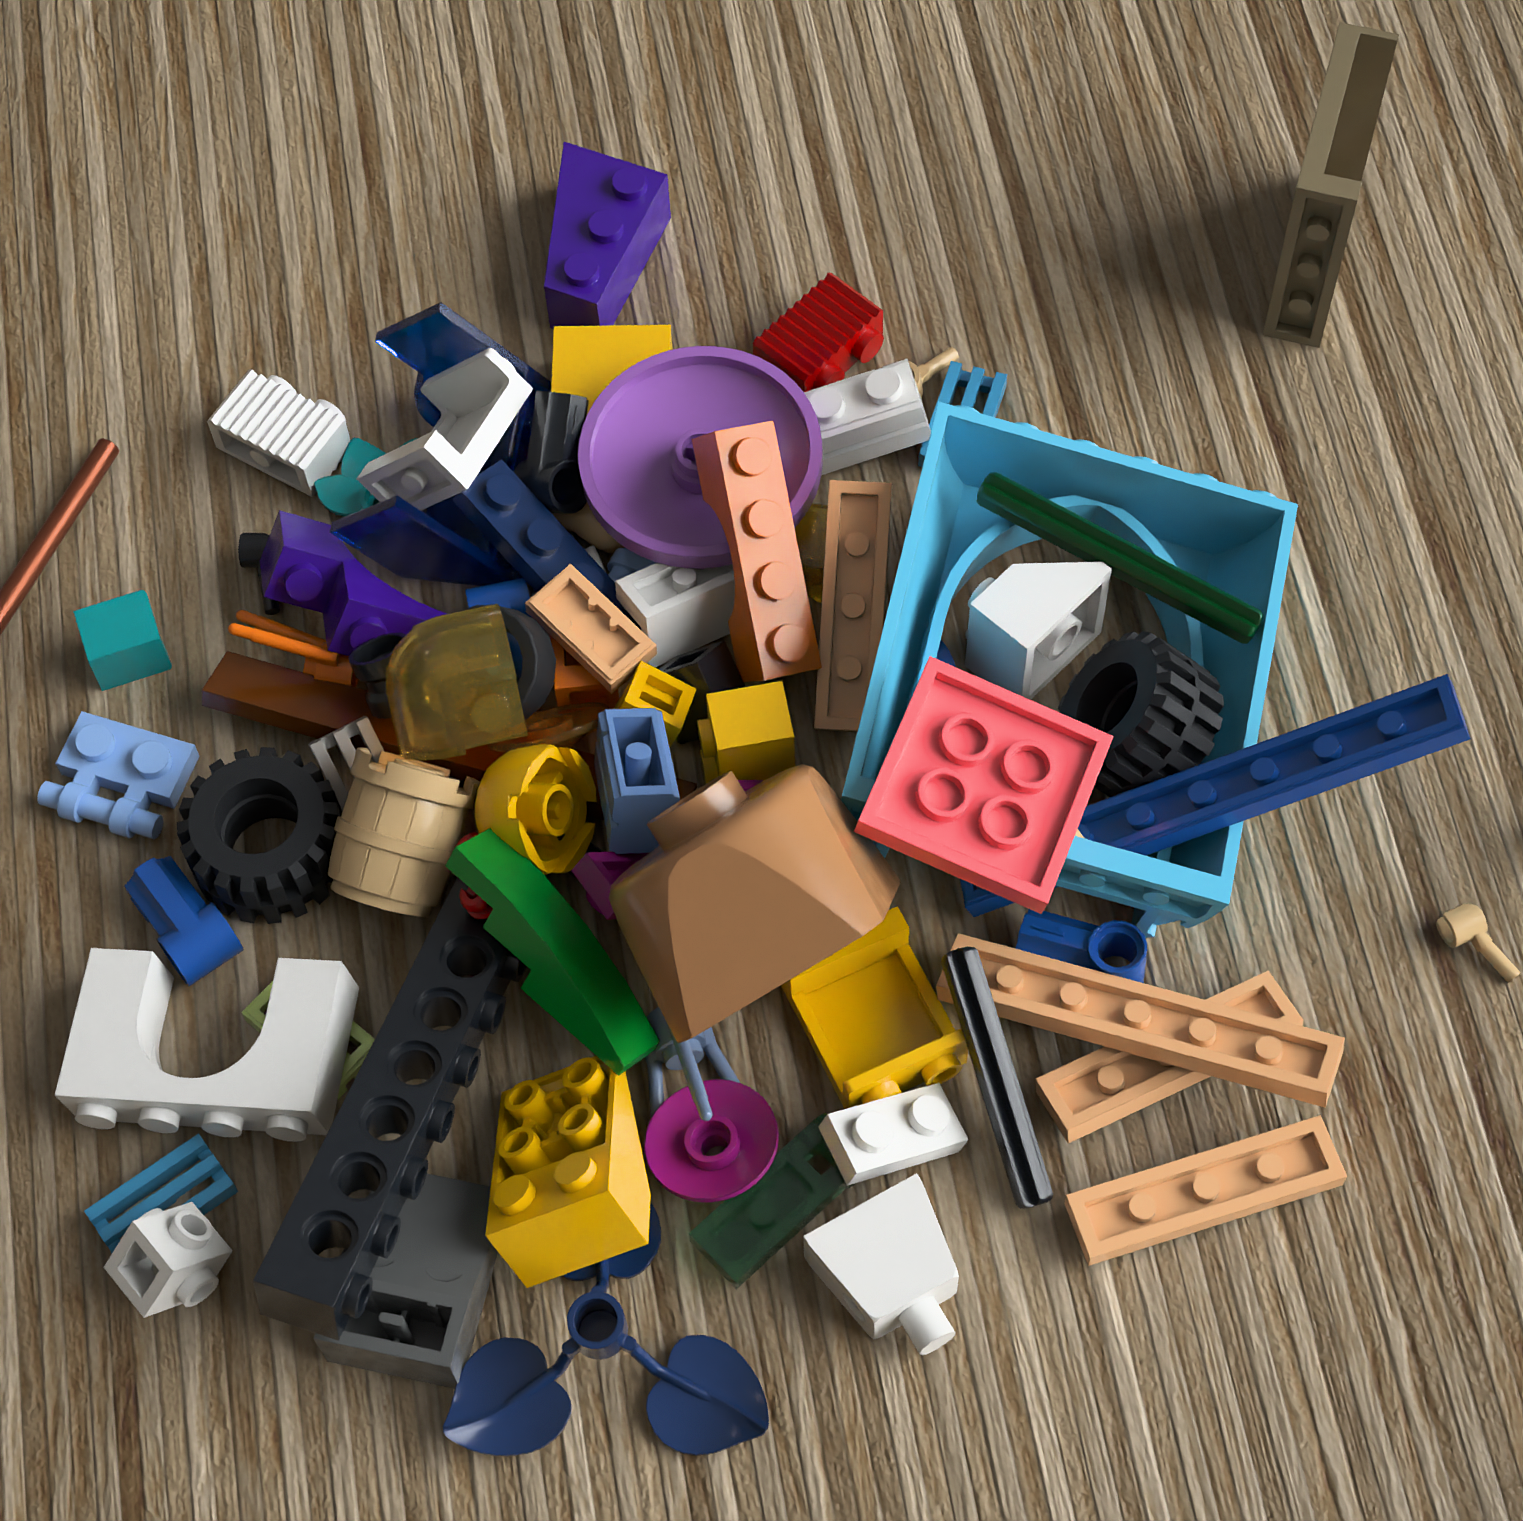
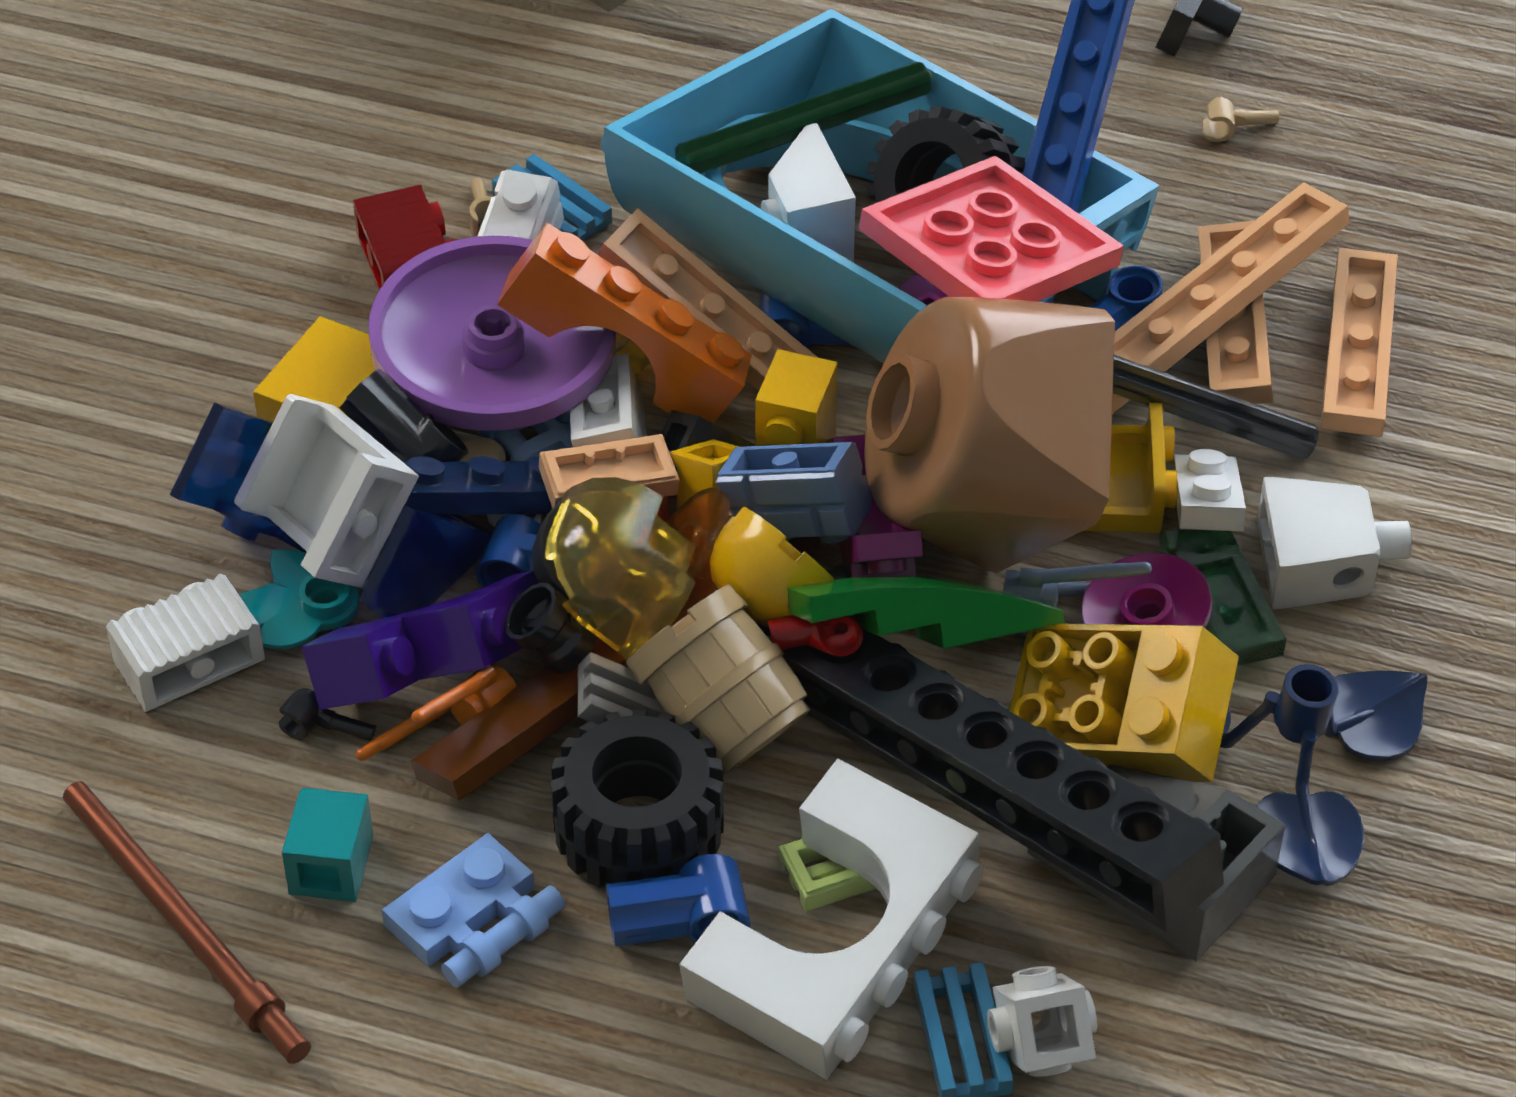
camera: 65 degrees left, 15 degrees down
(601, 235) = (167, 335): dark purple wedge -> none

